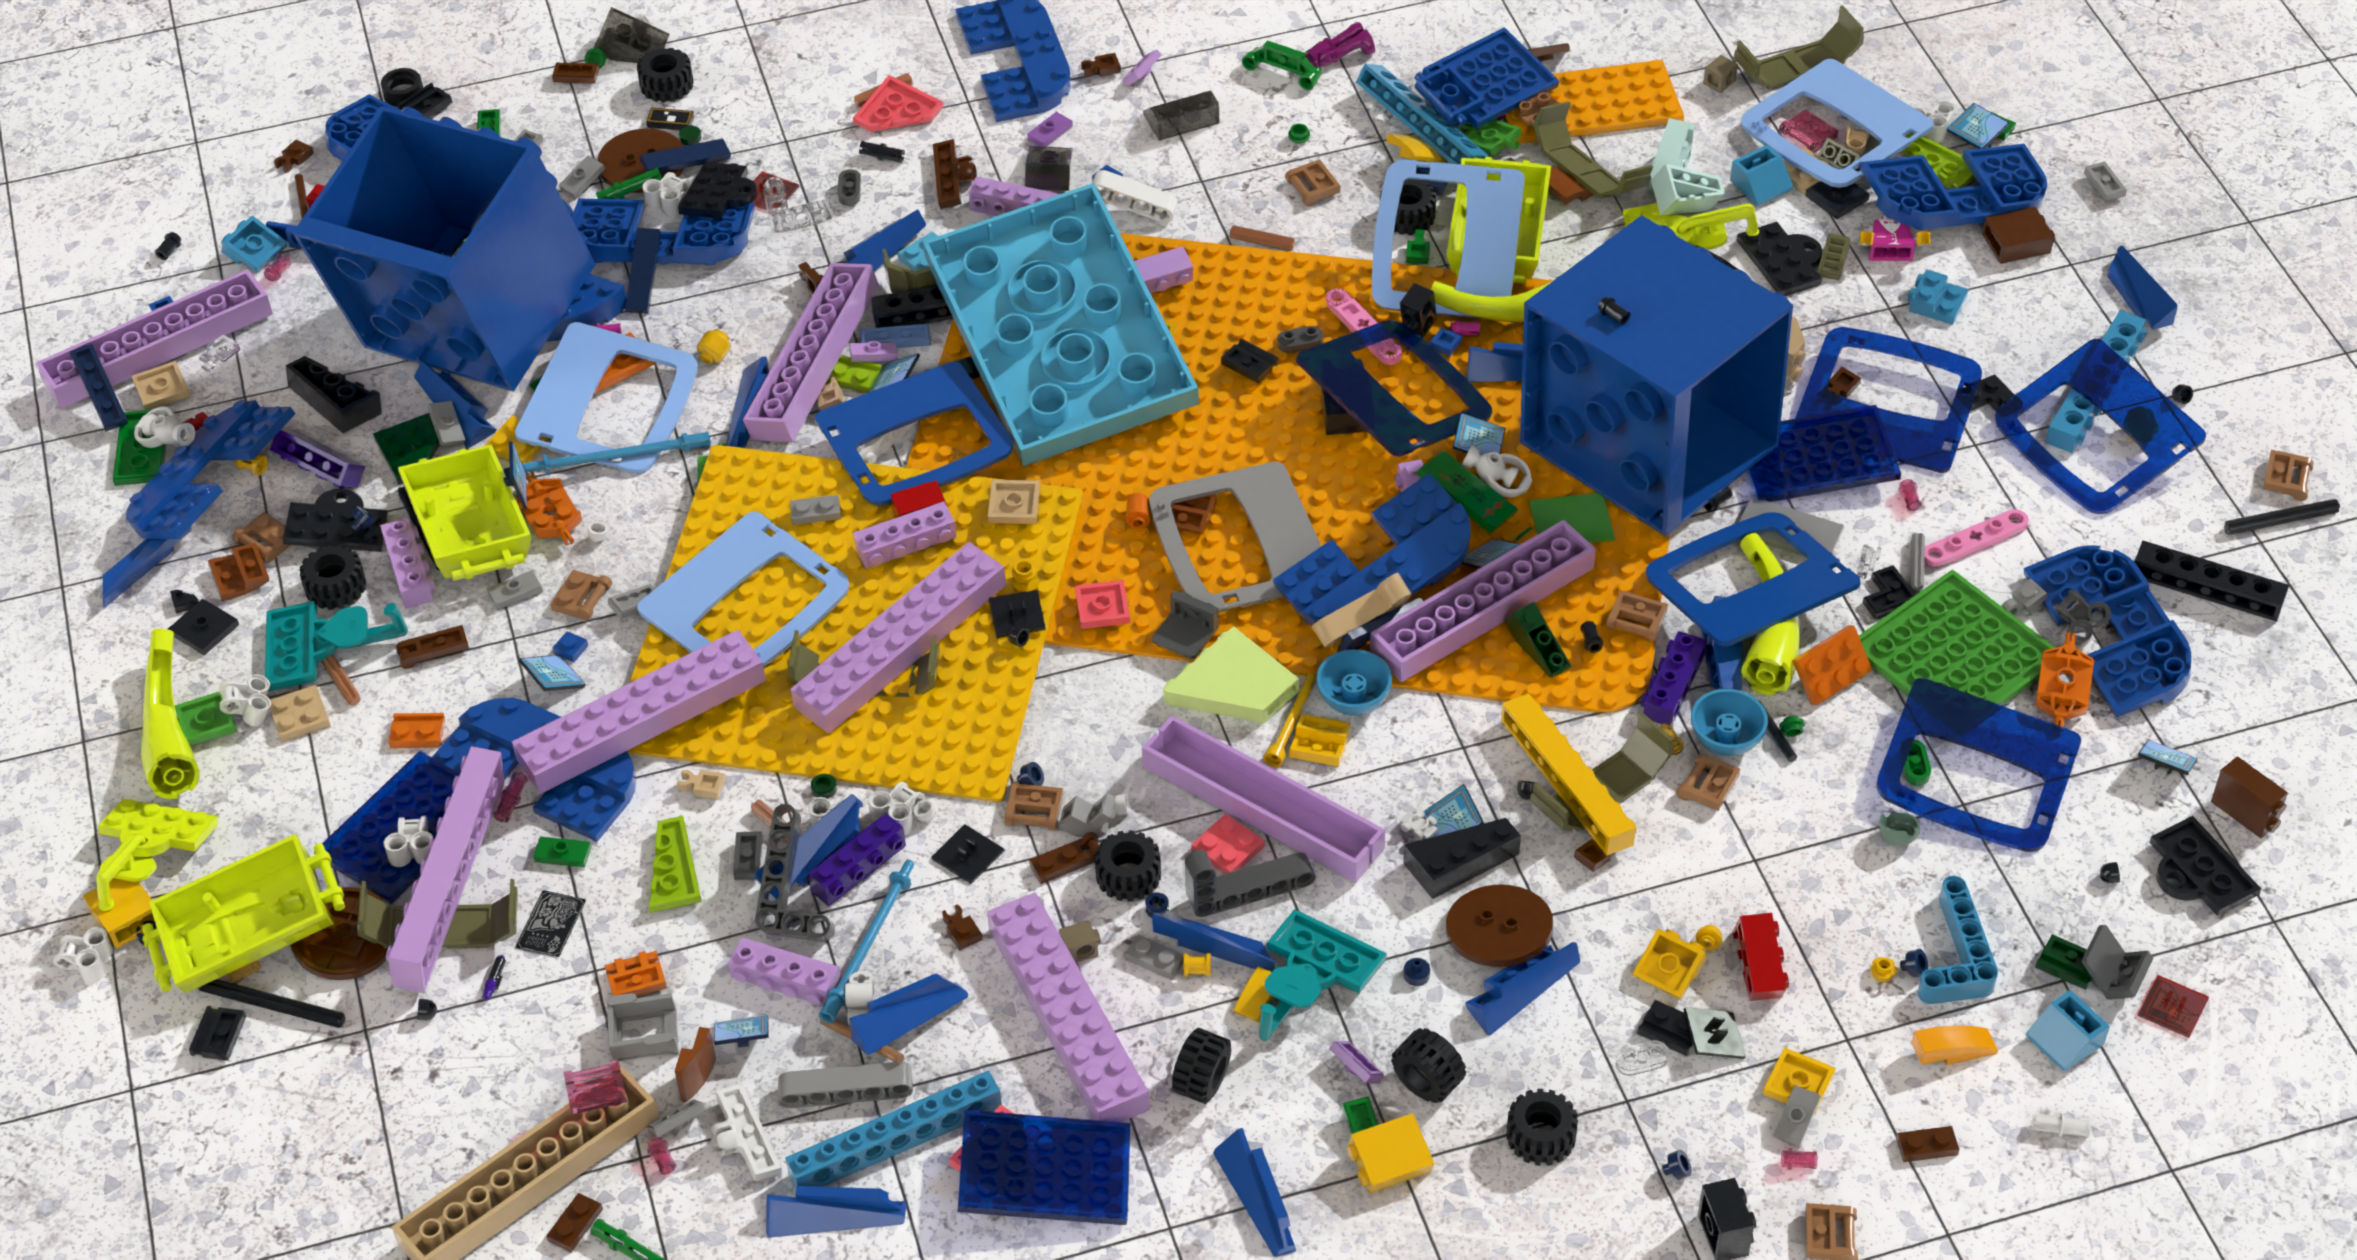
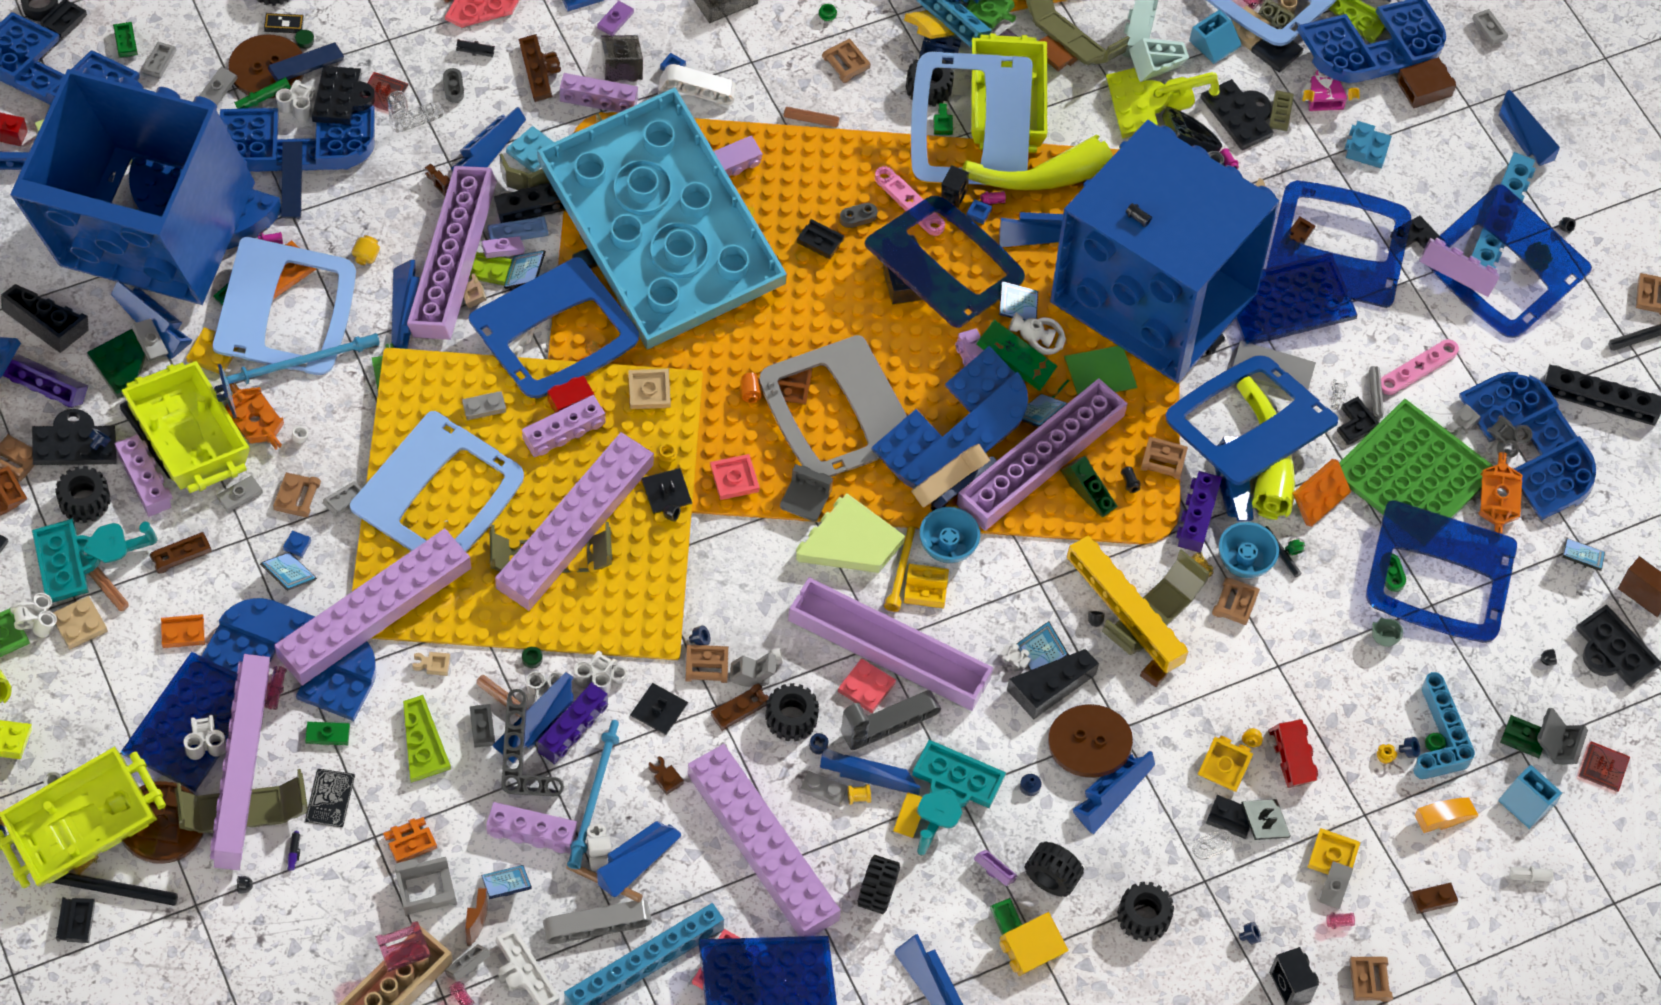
camera: 15 degrees left, 10 degrees up
(1081, 940) = (765, 780): dark tan brick -> none
(1909, 491) = (1362, 326): clear pink pin -> none
(1948, 957) = (1435, 742): none -> green plate
(2036, 427) = (1459, 267): none -> lavender brick

